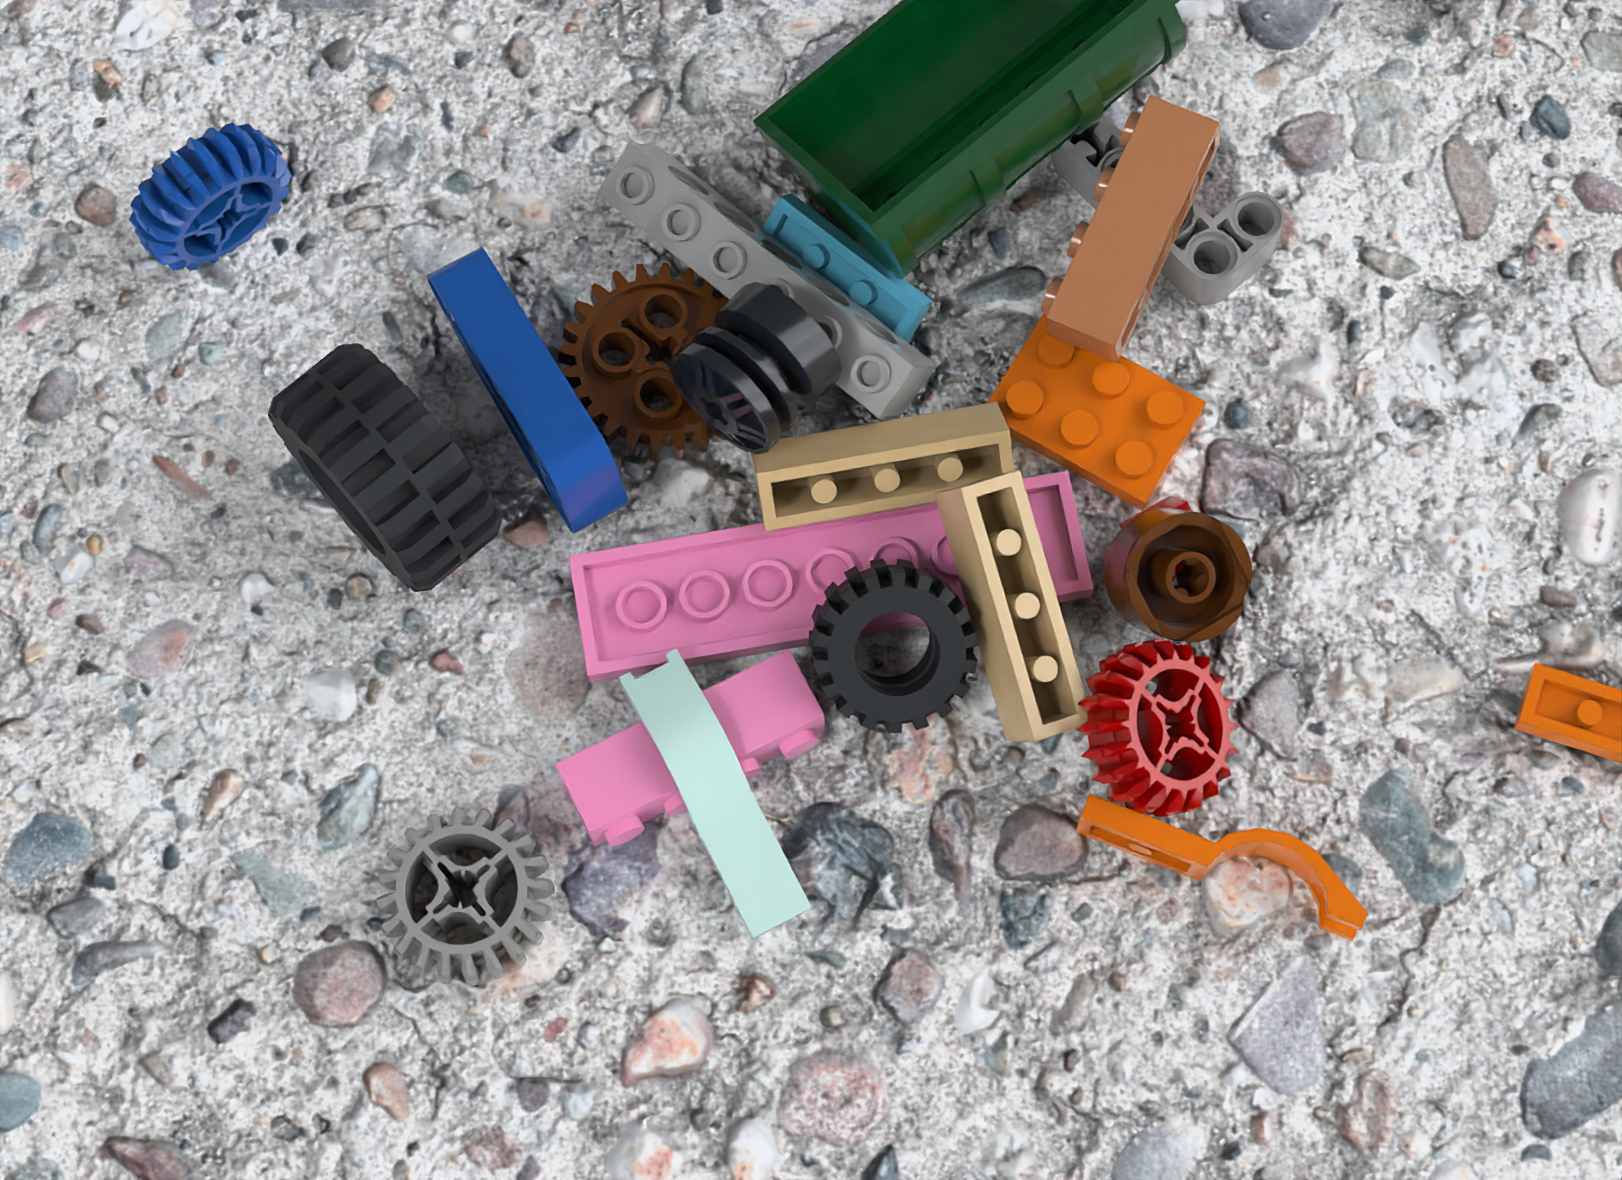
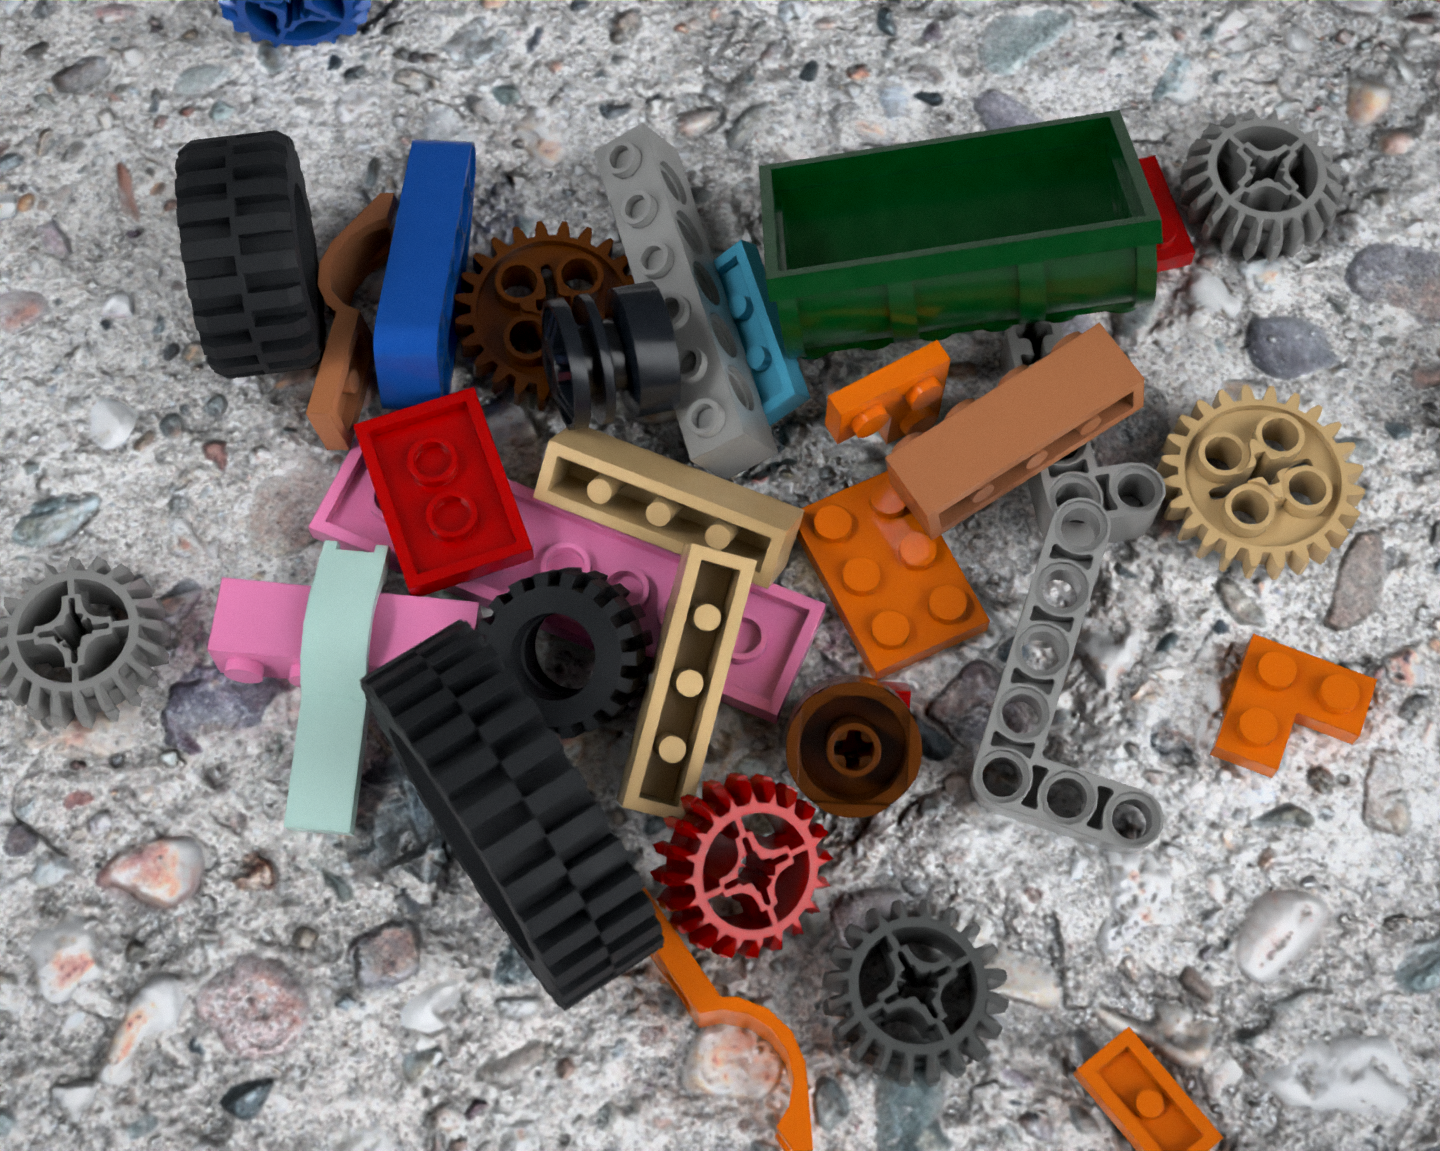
camera: 30 degrees right, 5 degrees down
(449, 391) = (349, 348): none -> nougat piece
(688, 573) = (443, 492): none -> red plate
(978, 797) = (514, 812): none -> black tyre
(1013, 261) = (893, 399): none -> orange plate
(1299, 435) = (1042, 691): none -> light grey beam
(1375, 755) = (964, 964): none -> dark grey gear
(1389, 178) = (1284, 526): none -> tan gear
(1469, 315) = (1285, 688): none -> orange plate

